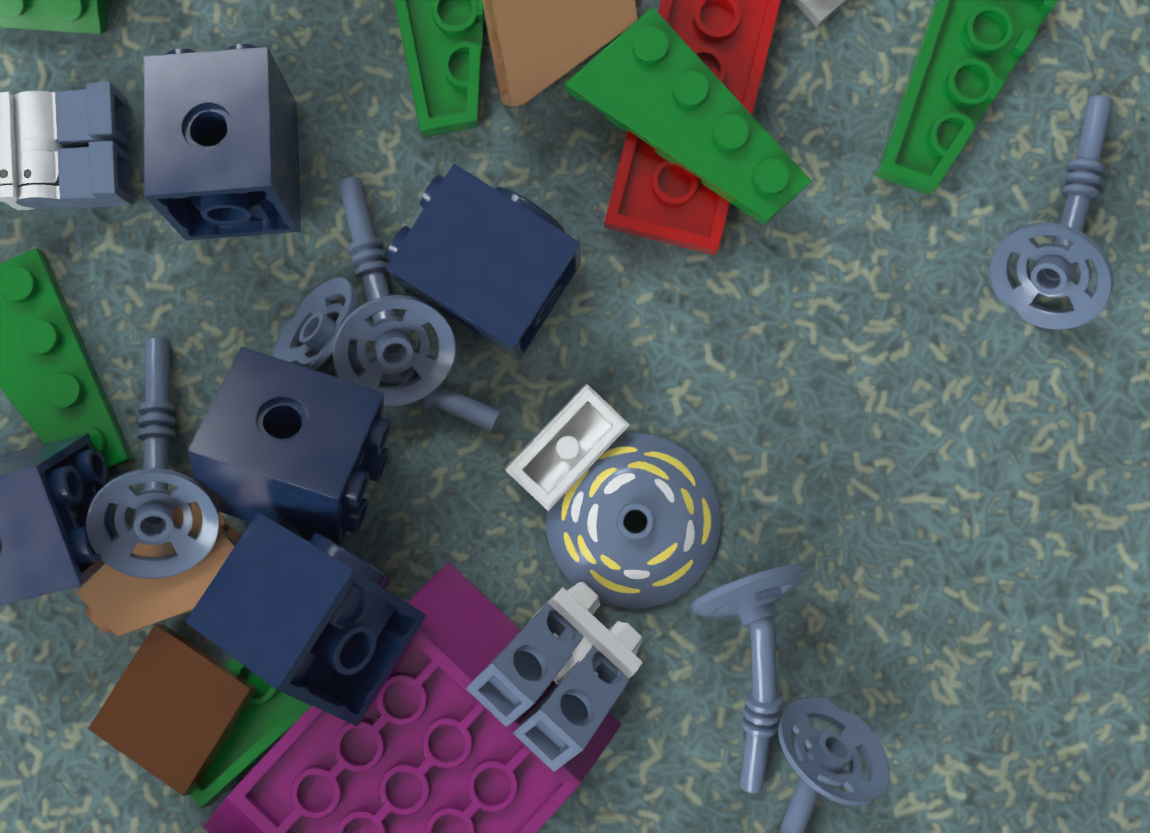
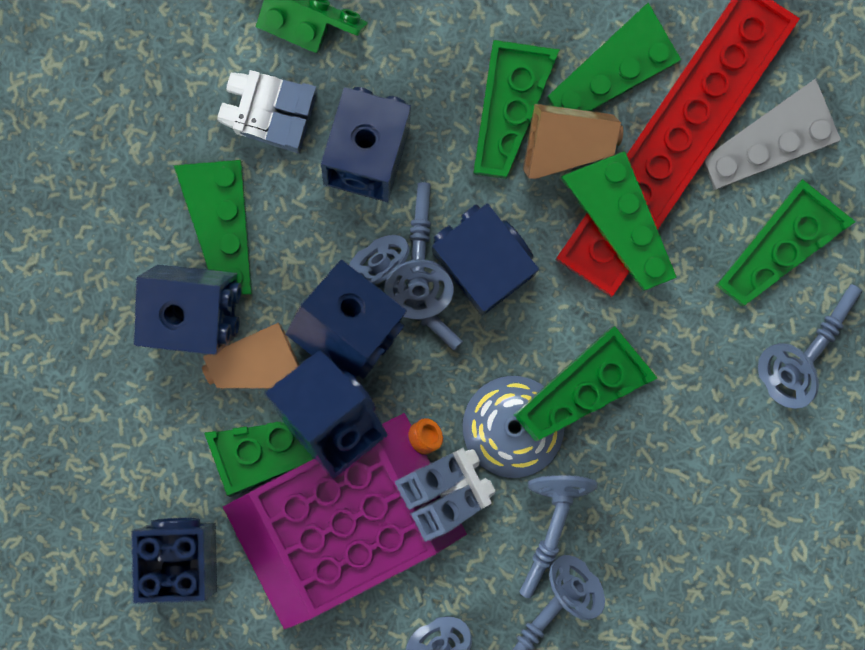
camera: 20 degrees right, 0 degrees up
(153, 504) = (261, 316): sand blue dish -> none
(173, 709) = (230, 437): reddish brown tile -> none
(495, 589) = (425, 436): none -> orange tile
(566, 446) = (491, 373): white slope -> none
(732, 403) = (588, 383): none -> green wing

